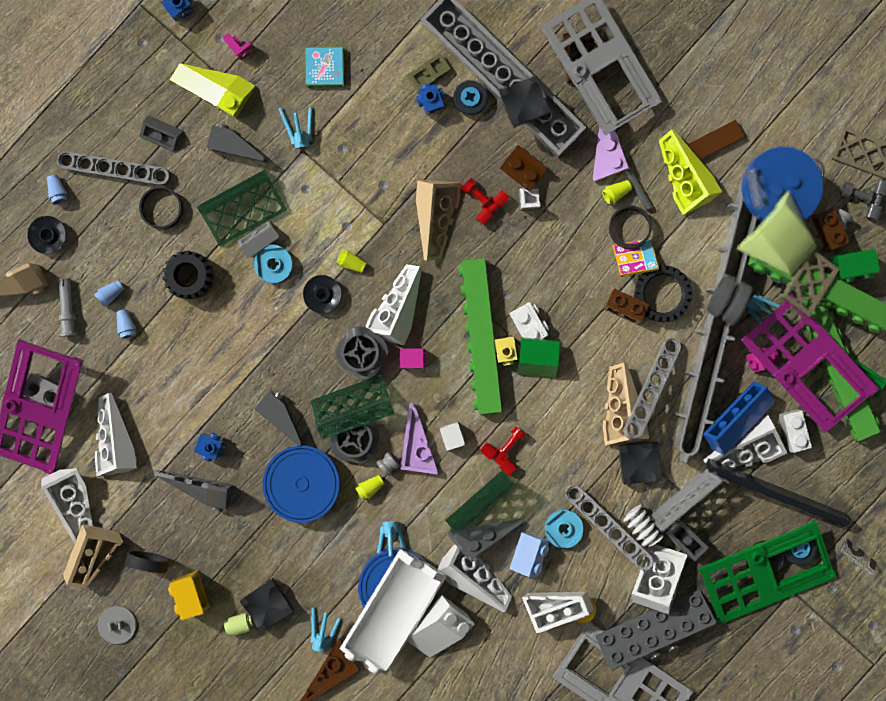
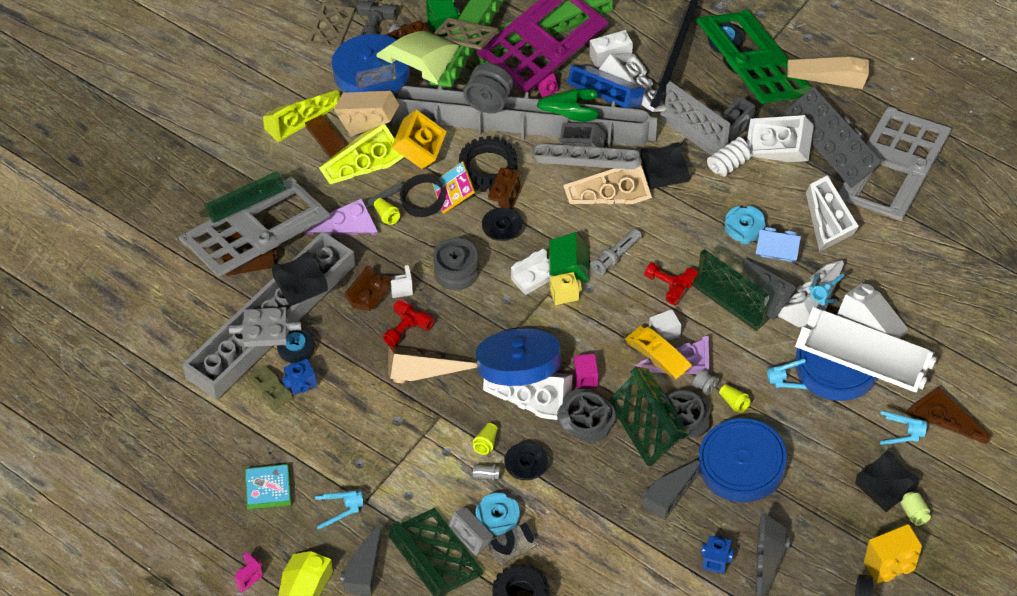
camera: 95 degrees left, 35 degrees down
(243, 274) = (512, 543): none -> clear slope
(316, 259) = (487, 472): none -> light grey pin
(417, 424) = (659, 351): none -> yellow slope
(424, 298) = (518, 357): none -> blue brick
(461, 585) = (822, 290): none -> medium azure plant
(476, 68) = (264, 327): none -> light grey plate
(481, 336) = (554, 310): bright green brick -> none
(539, 396) = (611, 256): none -> light grey pin
(554, 251) = (455, 264): none -> dark grey wheel
(594, 292) = (502, 224): none -> black dish
(606, 530) = (739, 185): light grey beam -> none
(635, 60) = (243, 197): none -> clear green fence
(672, 392) = (588, 135): none -> flat silver torso
(692, 228) = (419, 139): none -> yellow brick
(709, 374) = (567, 106): none -> green animal
(727, 177) = (365, 110): none -> tan wedge
(742, 106) = (292, 117): none -> neon yellow wedge
(745, 649) = (834, 70): none -> tan wedge

